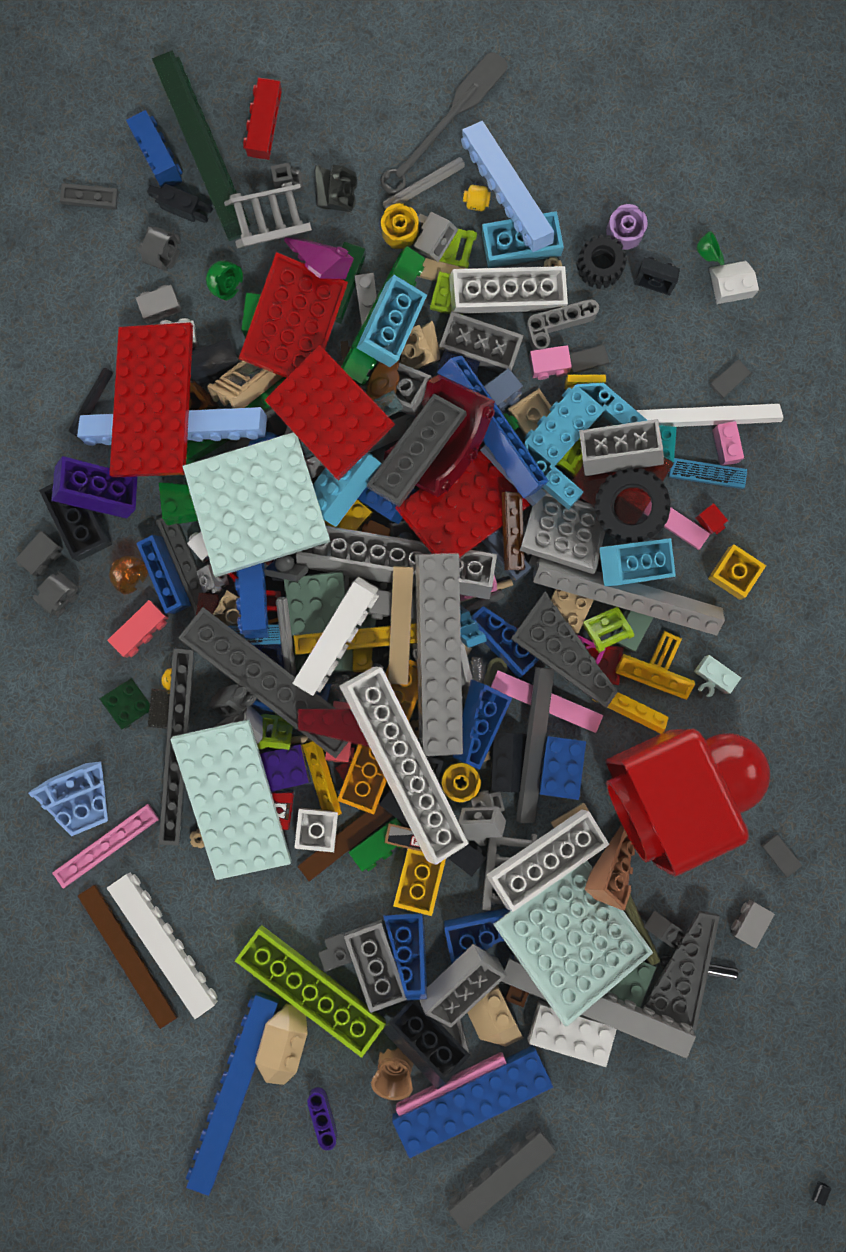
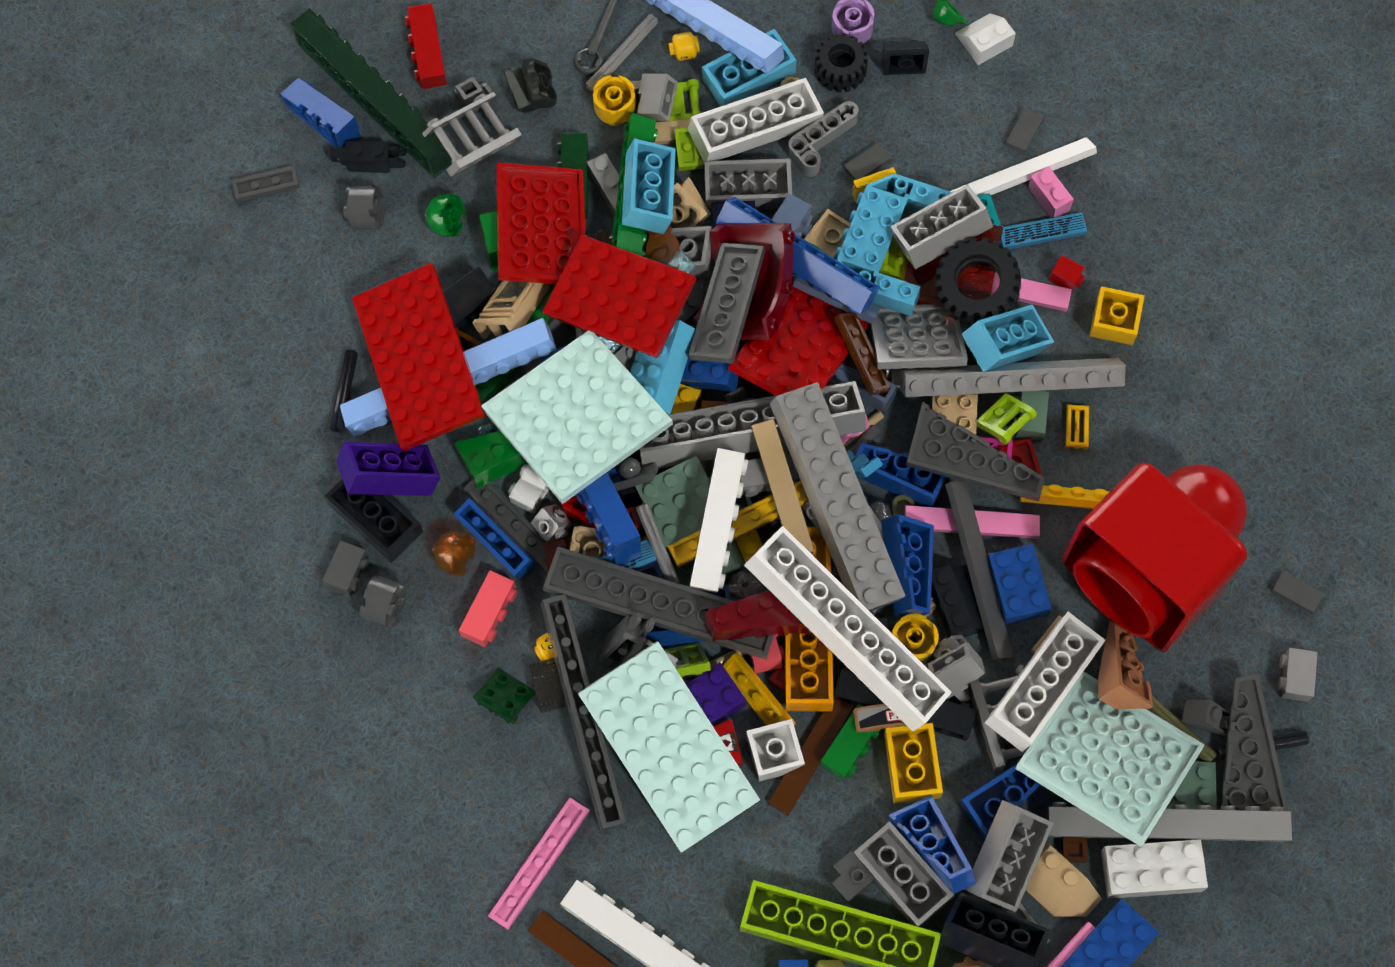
camera: 20 degrees left, 15 degrees down
(75, 798) = (486, 818): light blue wedge -> none
(158, 304) = (383, 264): light grey brick -> none
(194, 841) = (639, 818): tan plate -> none
(322, 259) = (549, 155): magenta wedge -> none
(550, 362) = (828, 178): bright pink brick -> none
(655, 676) = (1077, 453): yellow plate -> none
(716, 676) = (1142, 429): light aqua brick -> none

